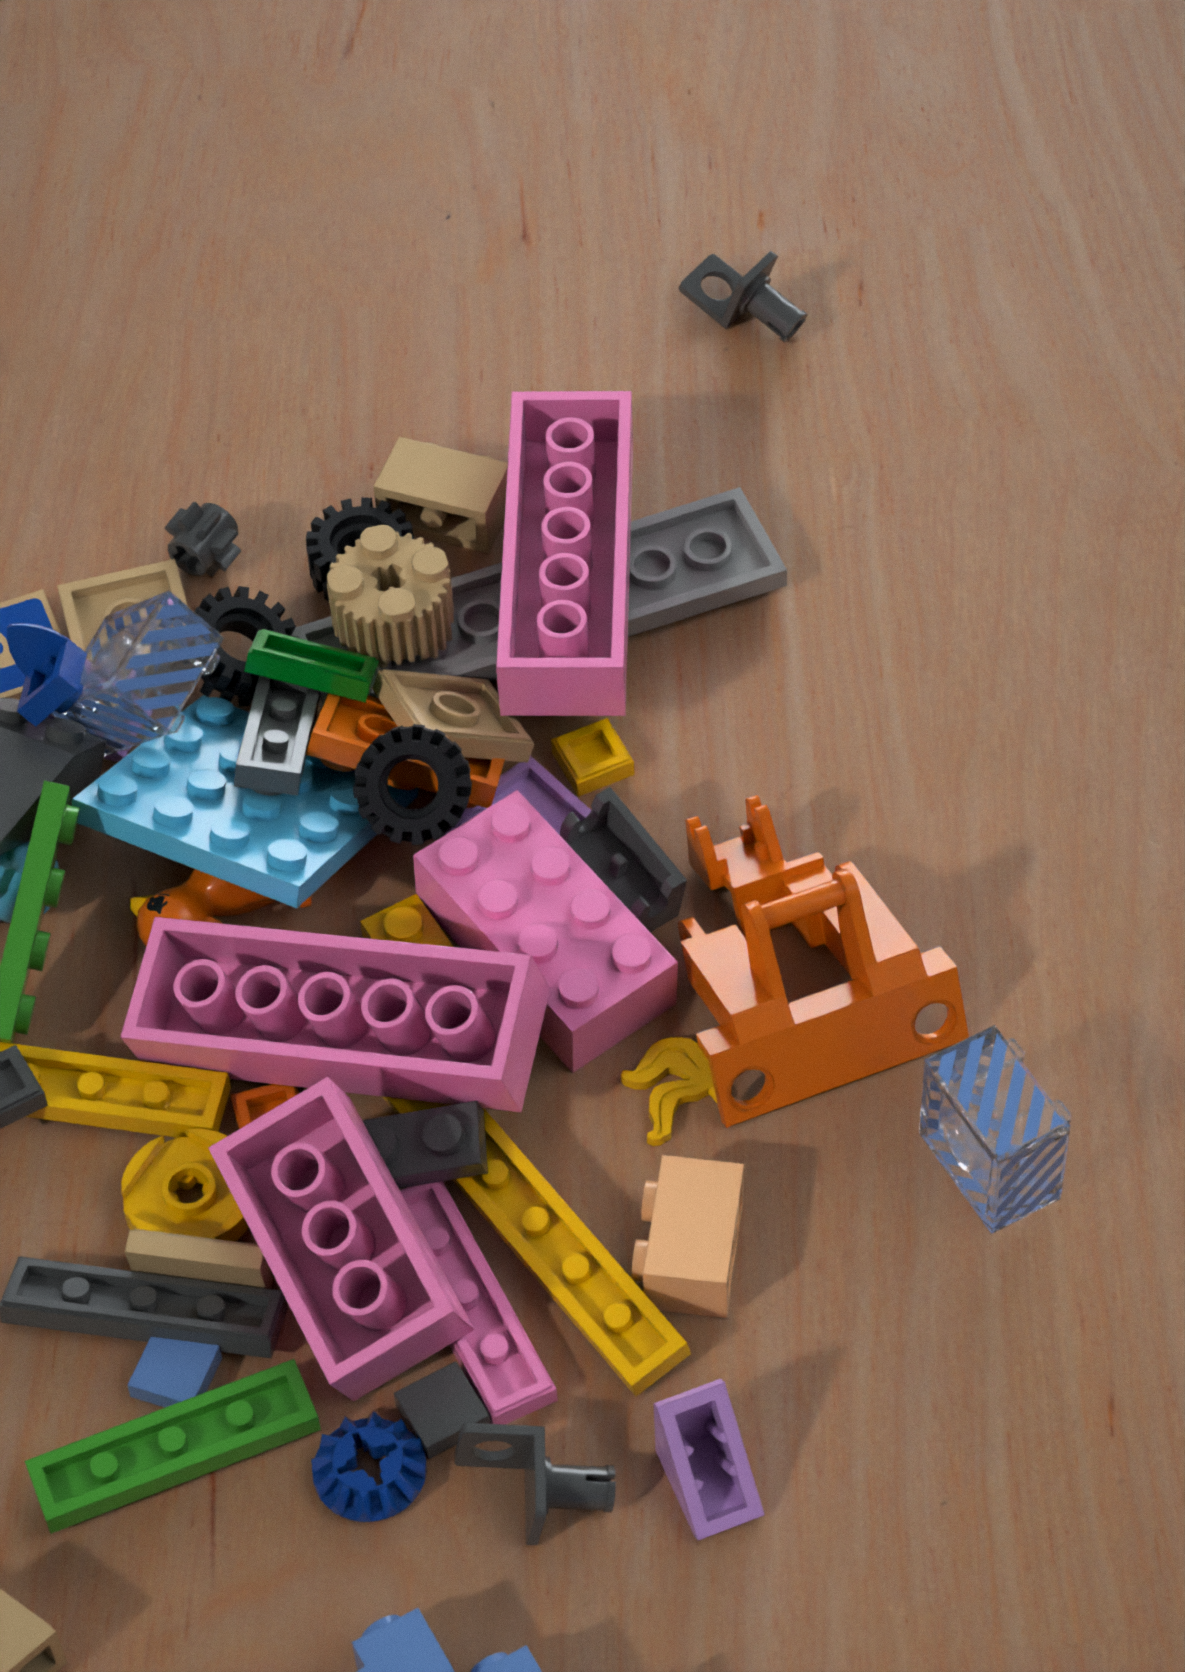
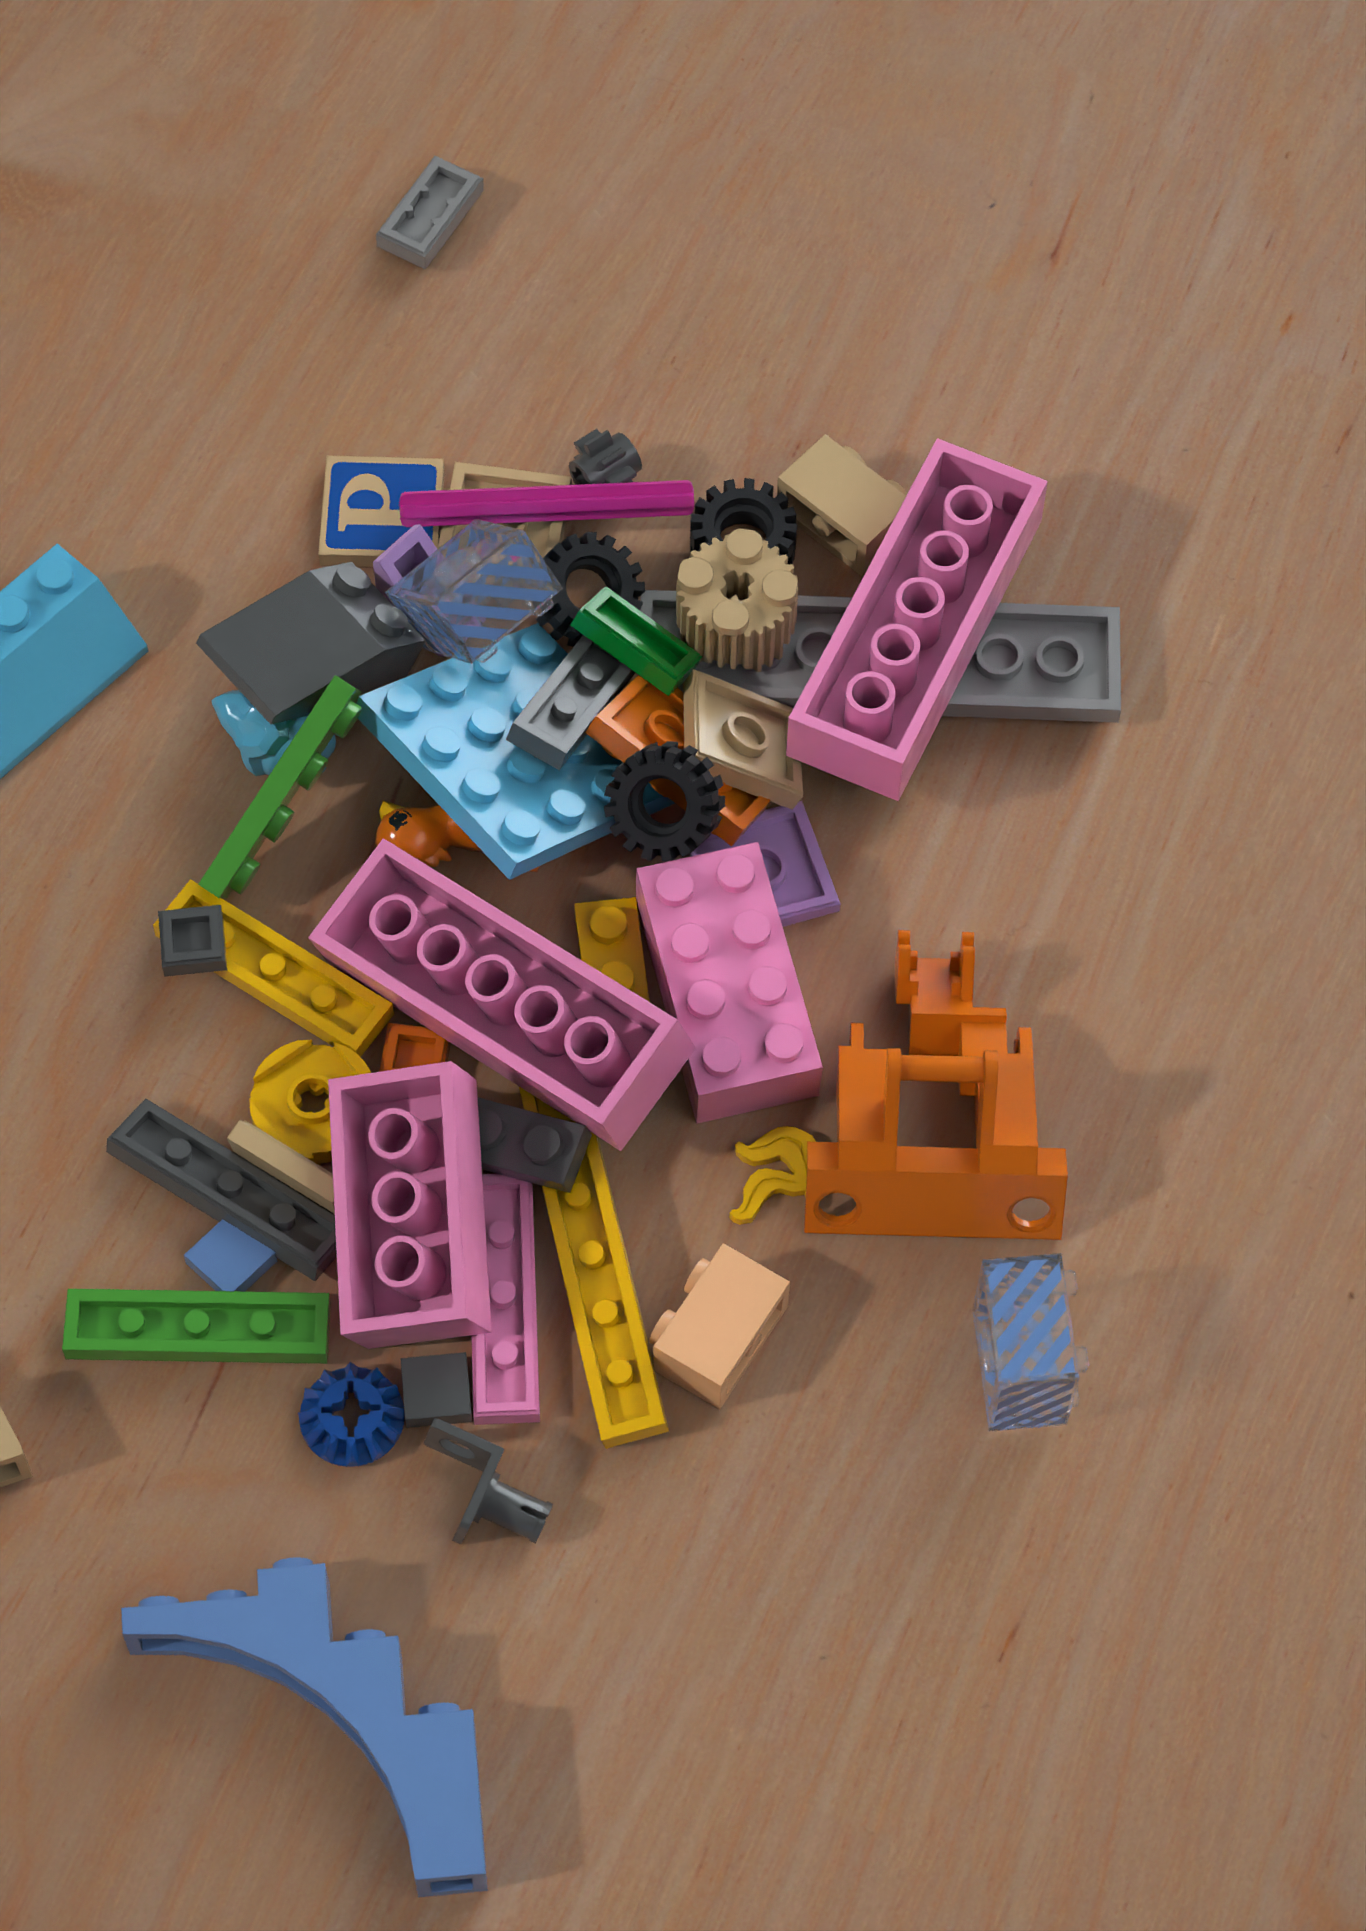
camera: 20 degrees right, 10 degrees up
(51, 670) = (398, 560): blue plate -> none
(180, 578) = (547, 503): none -> dark pink axle
(592, 757) = (857, 824): yellow tile -> none
(627, 859) = (825, 948): dark grey hinge -> none
(706, 1459) = (632, 1536): lavender slope -> none
(748, 294) = (1229, 406): dark grey bracket -> none

